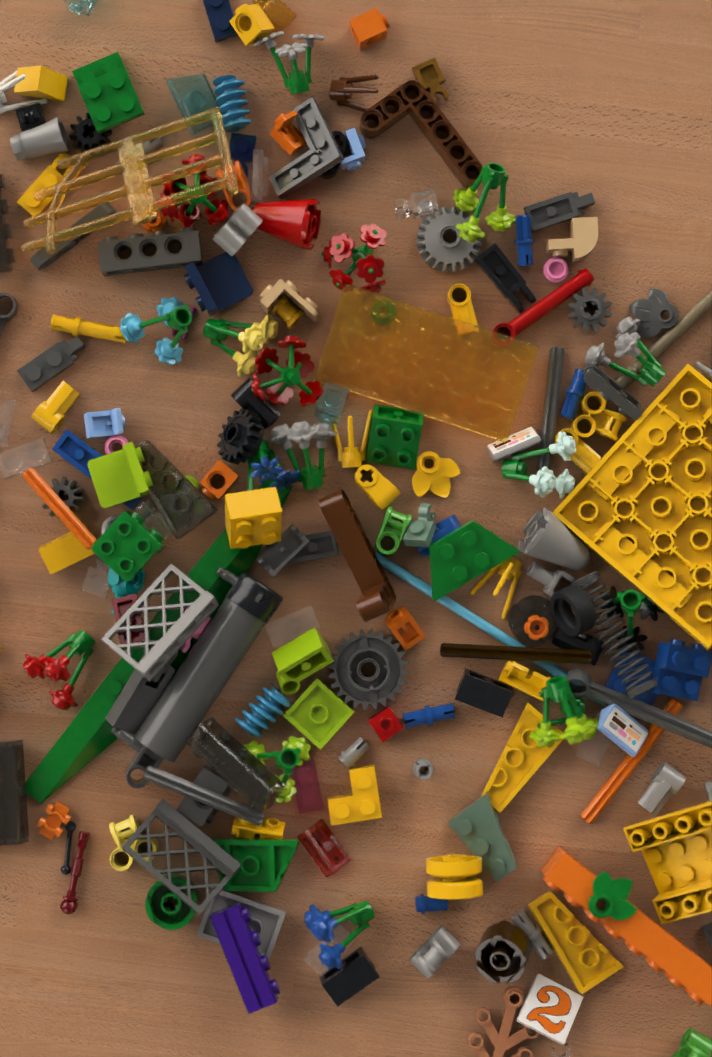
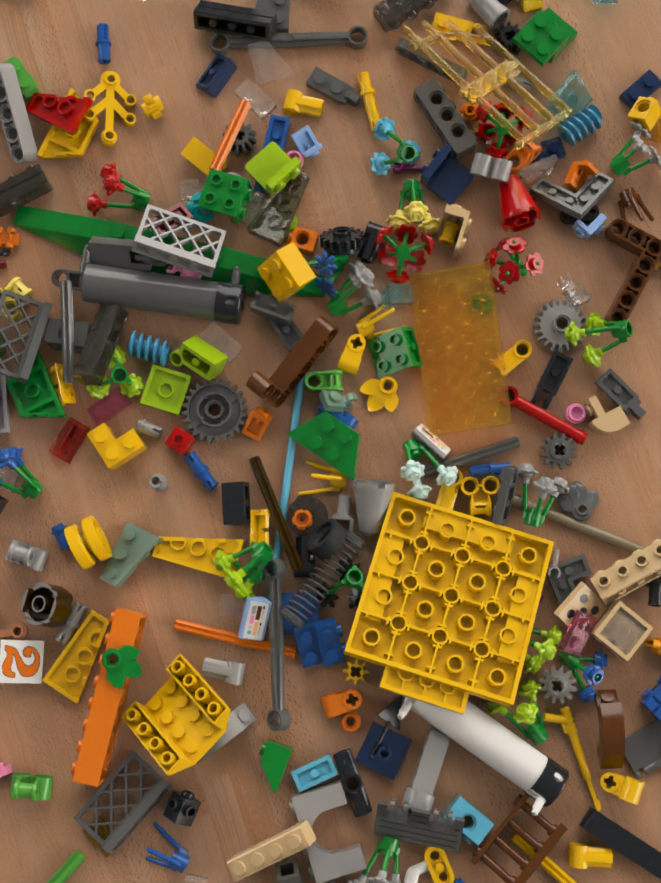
camera: 70 degrees right, 5 degrees down
(524, 240) = (586, 379): blue axle -> none

